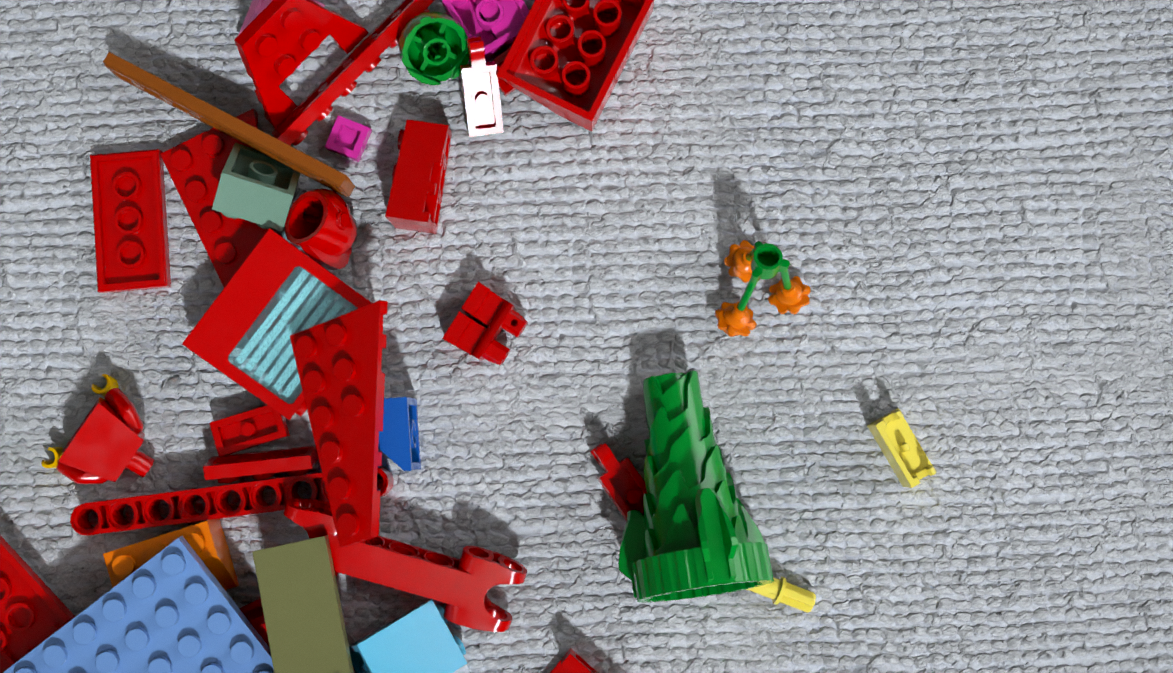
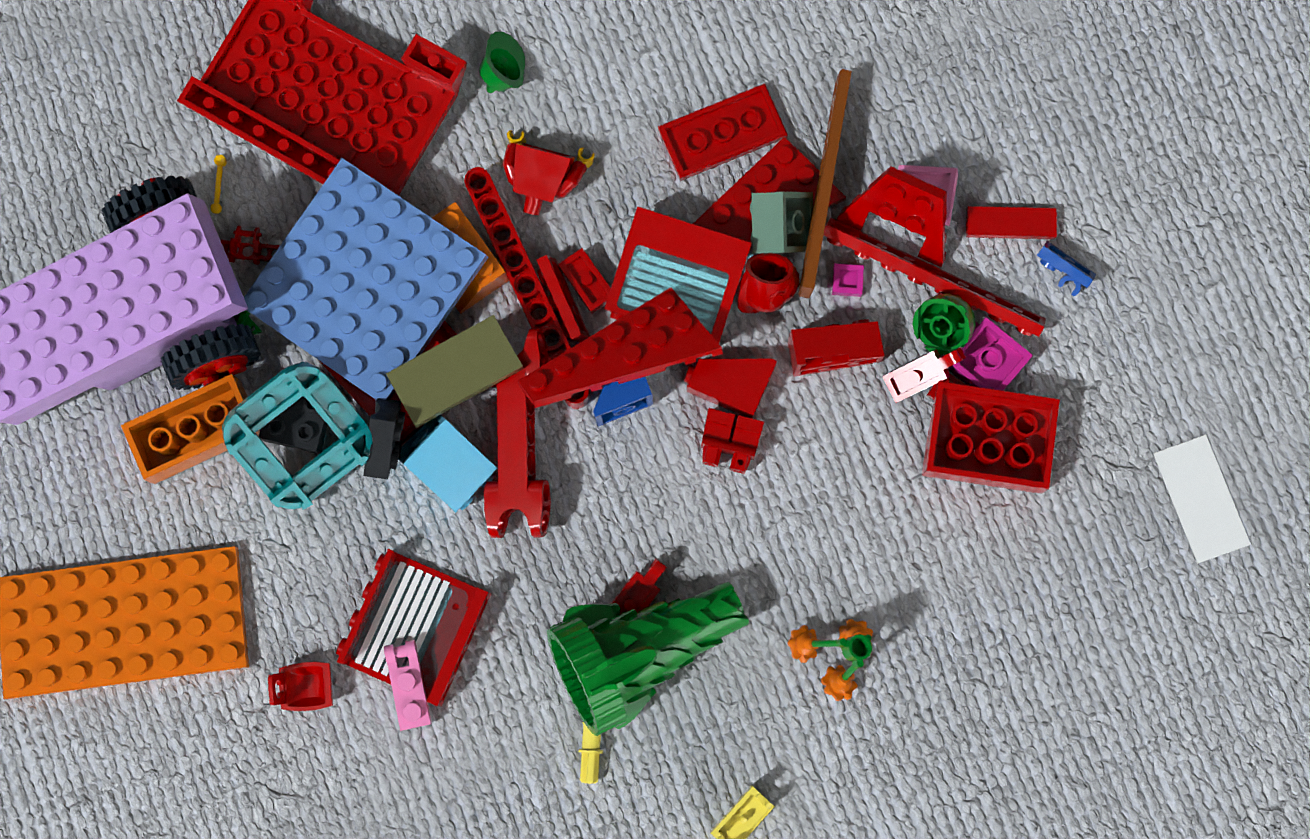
camera: 75 degrees right, 5 degrees down
(421, 304) = (731, 382): none -> red slope

